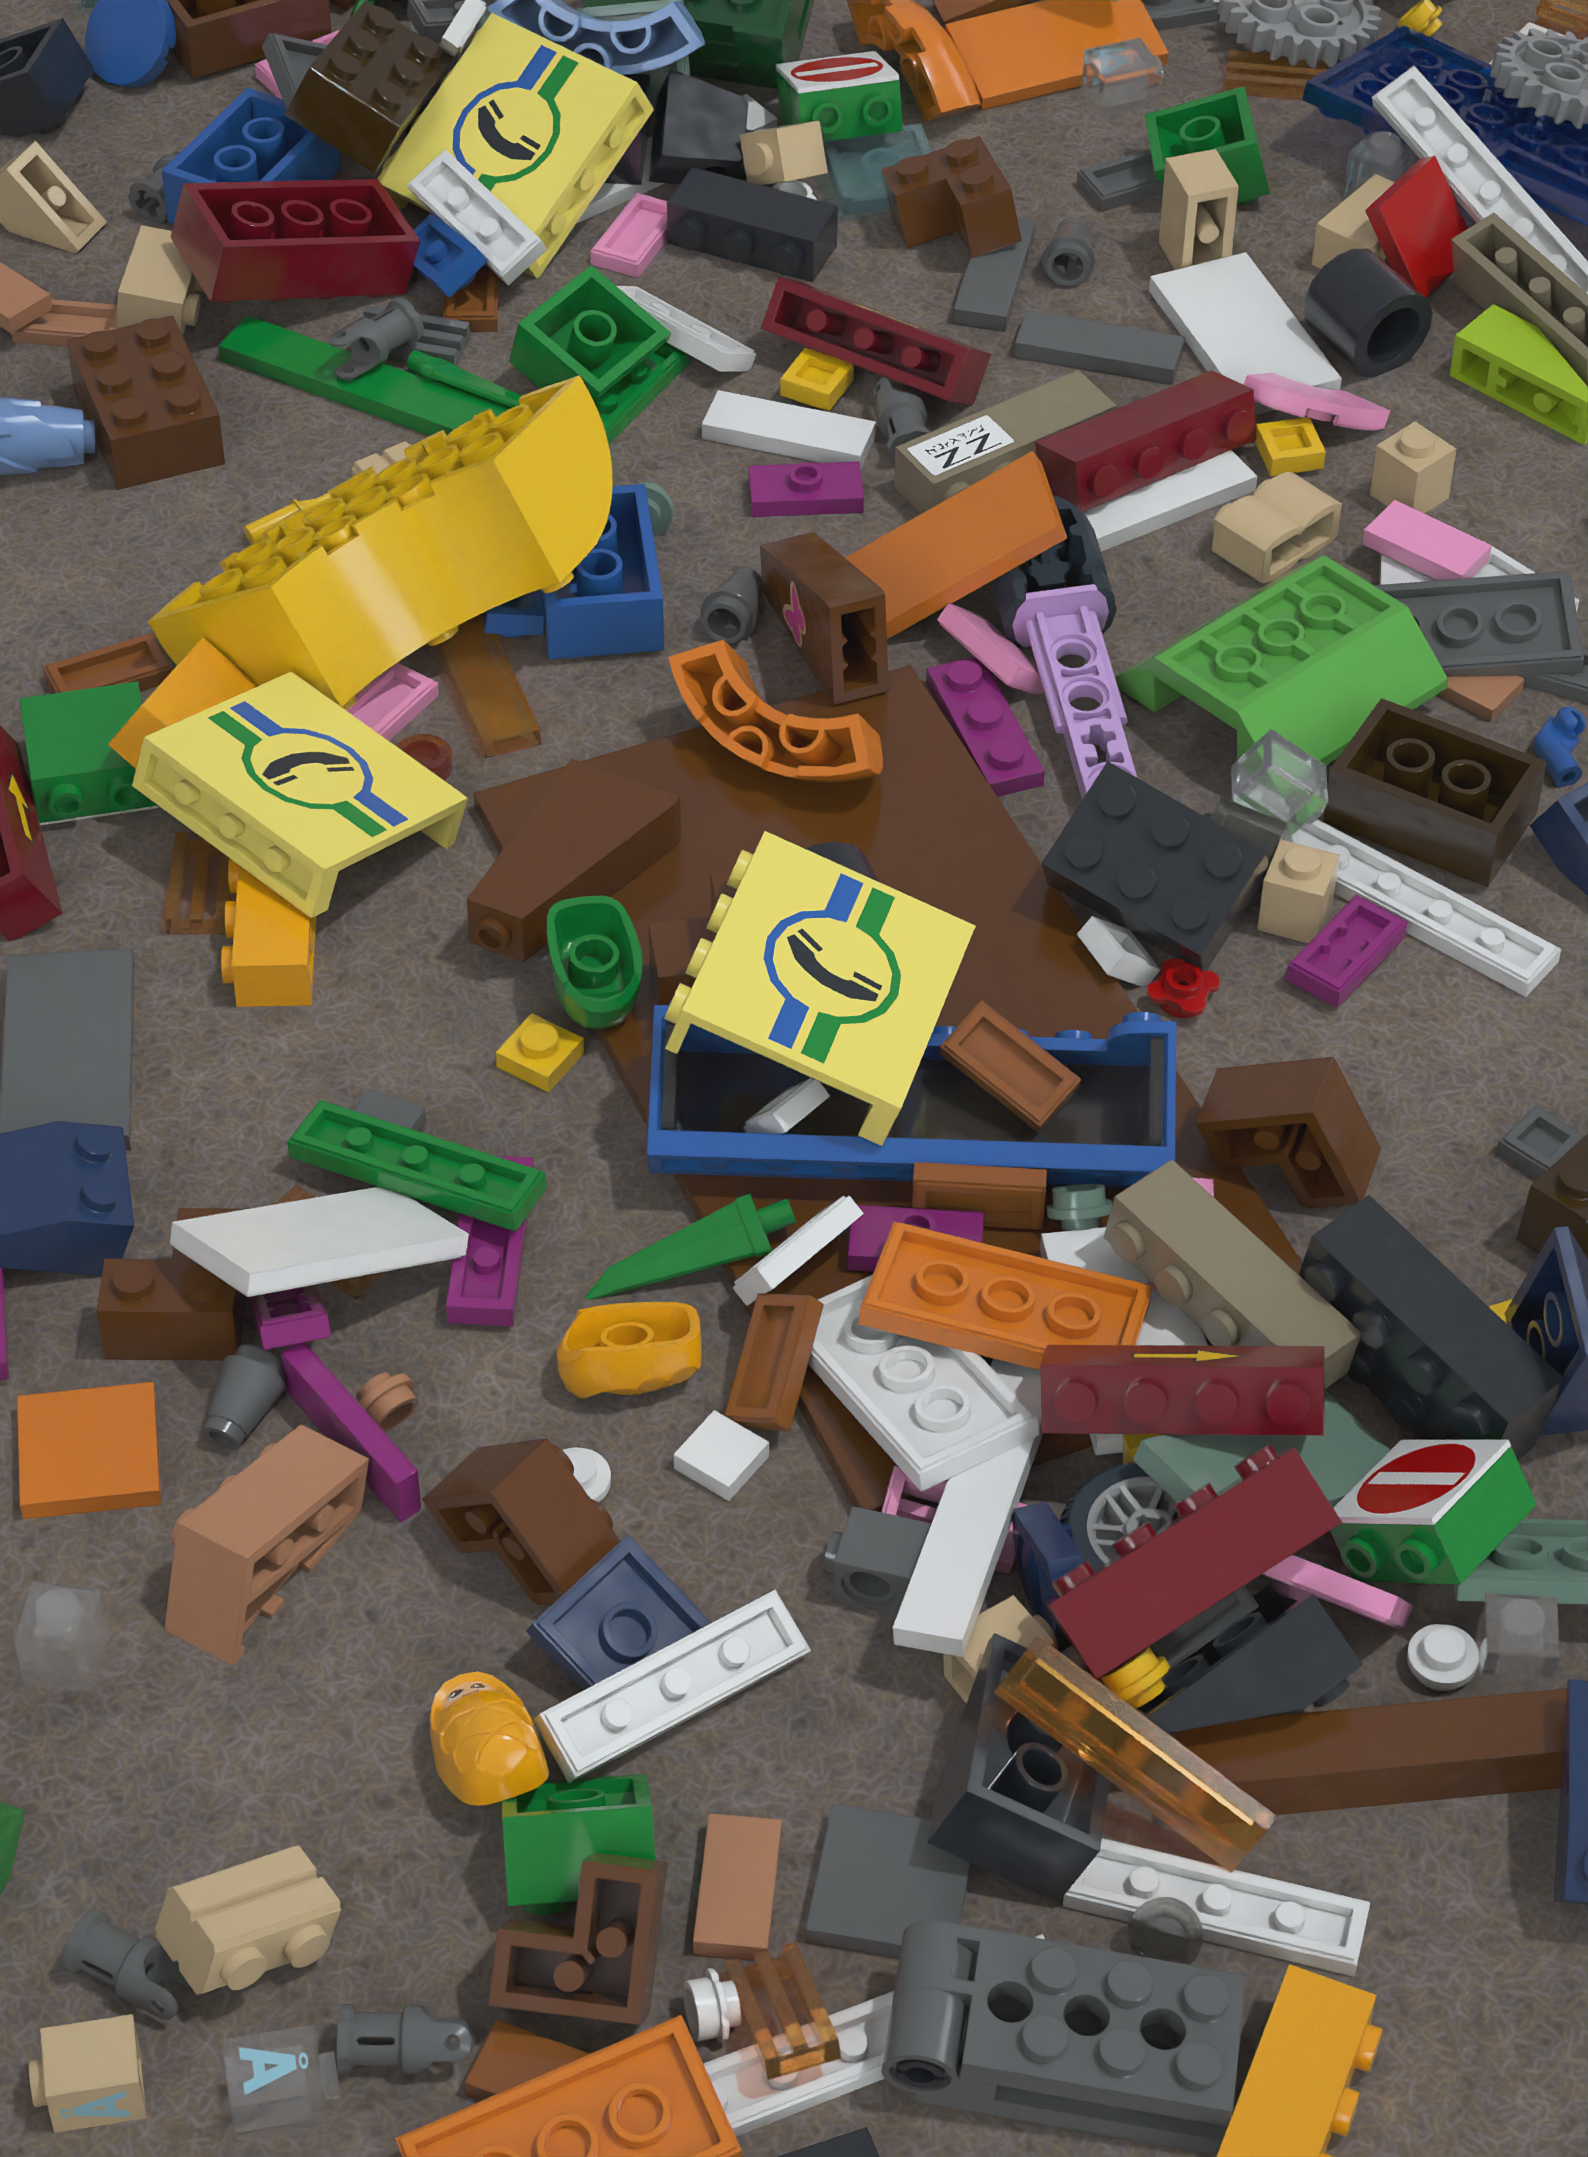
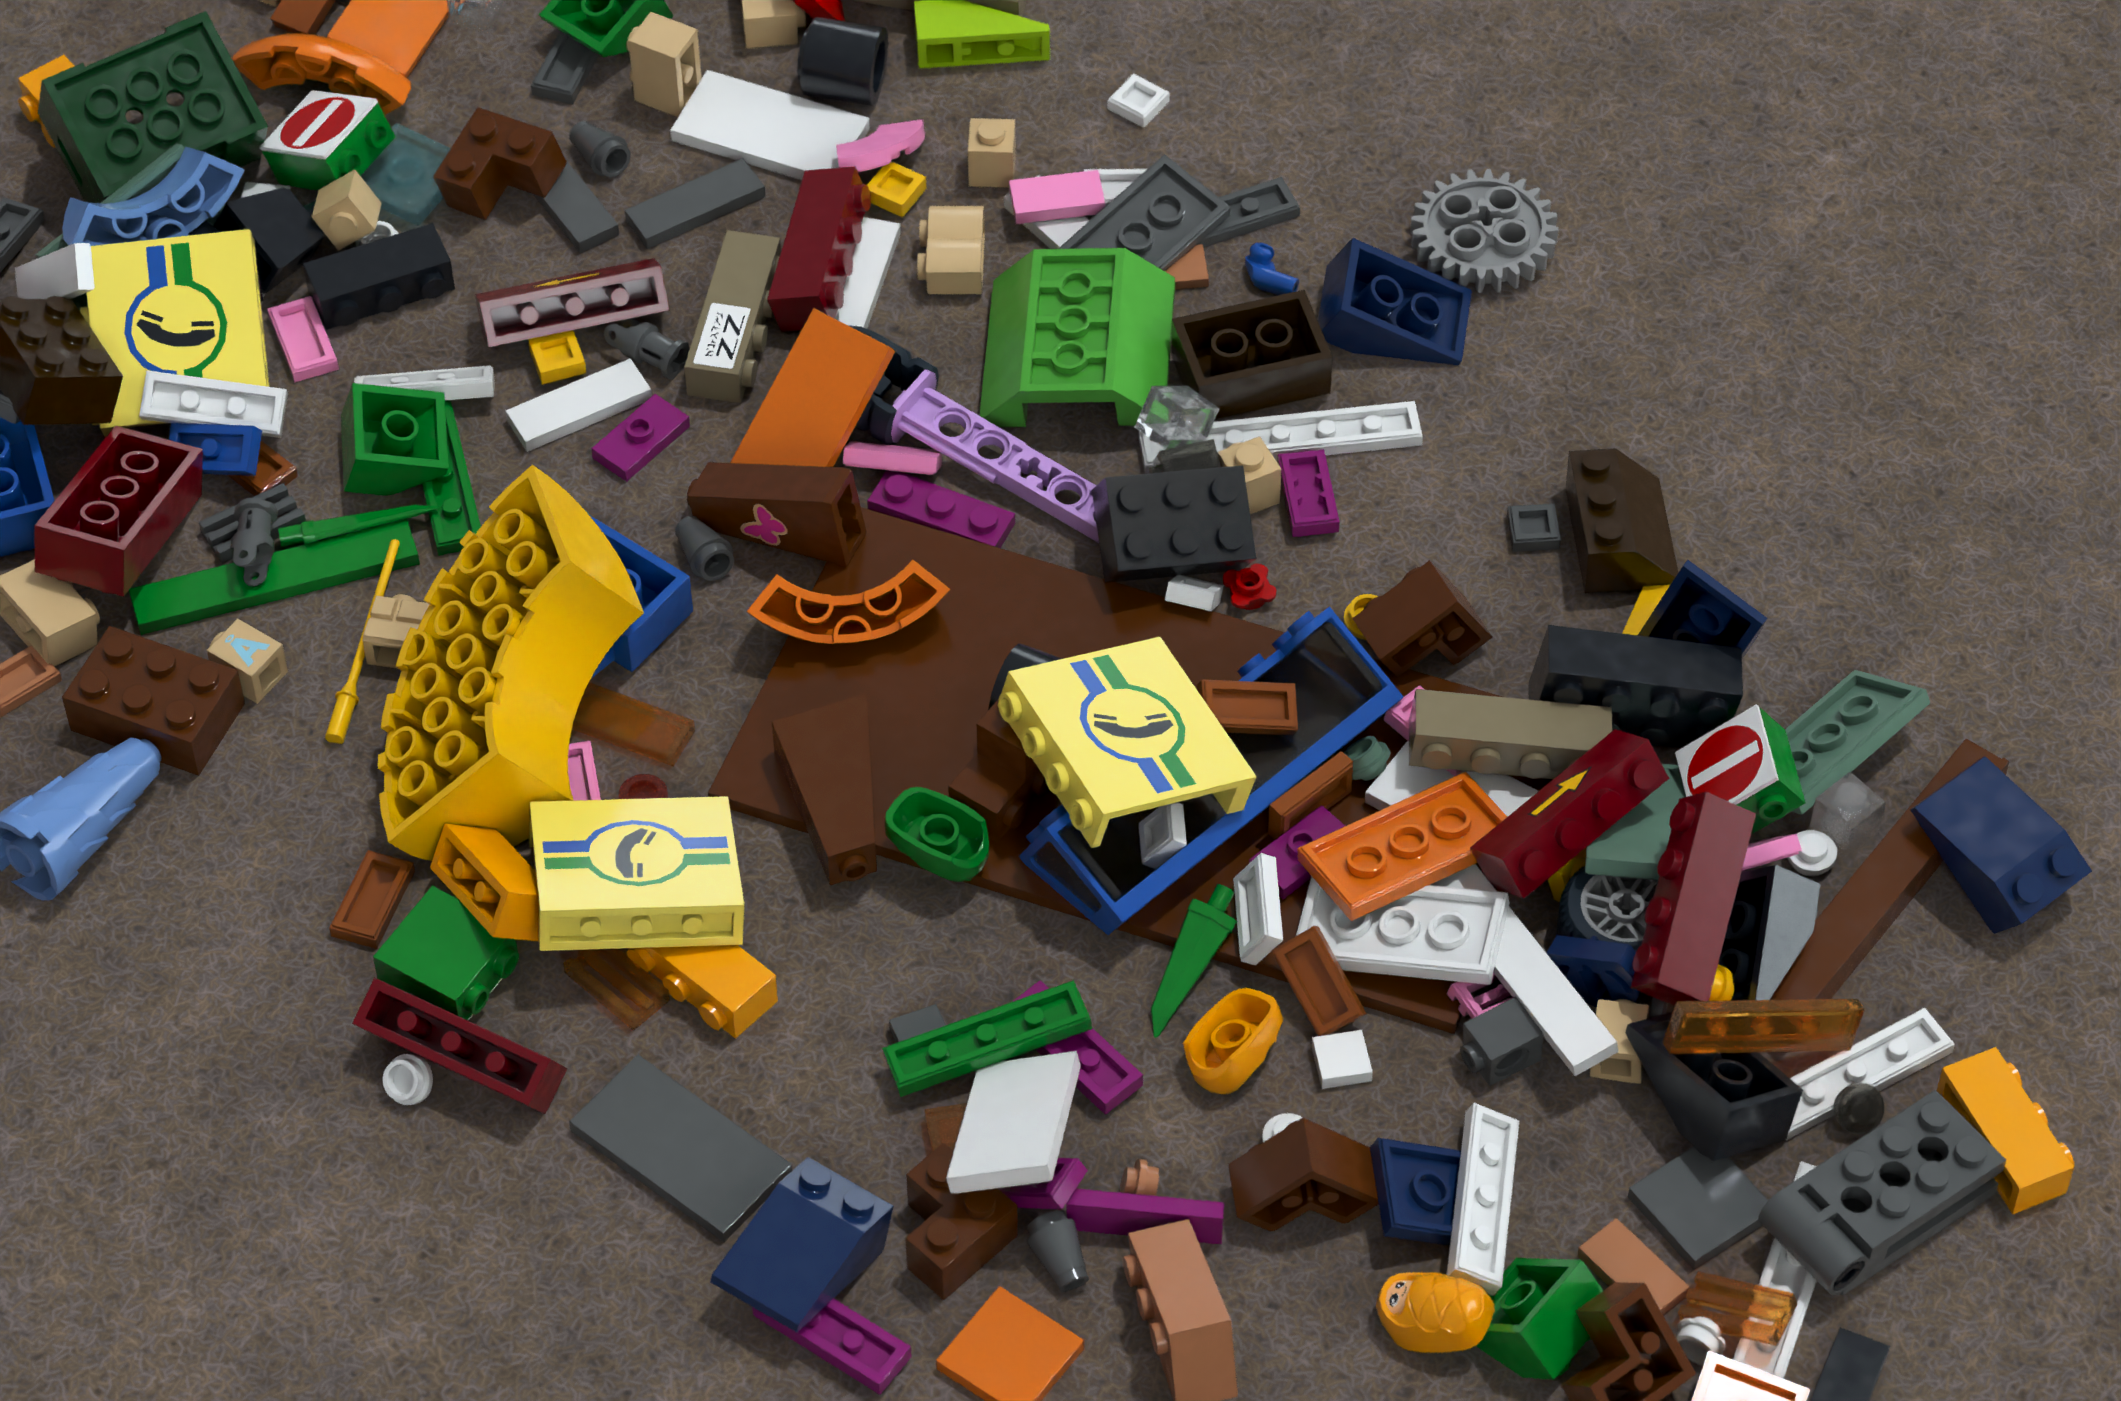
camera: 45 degrees left, 5 degrees up
(256, 426) = (254, 655): none -> tan brick
(540, 1052) = (950, 918): yellow plate -> none

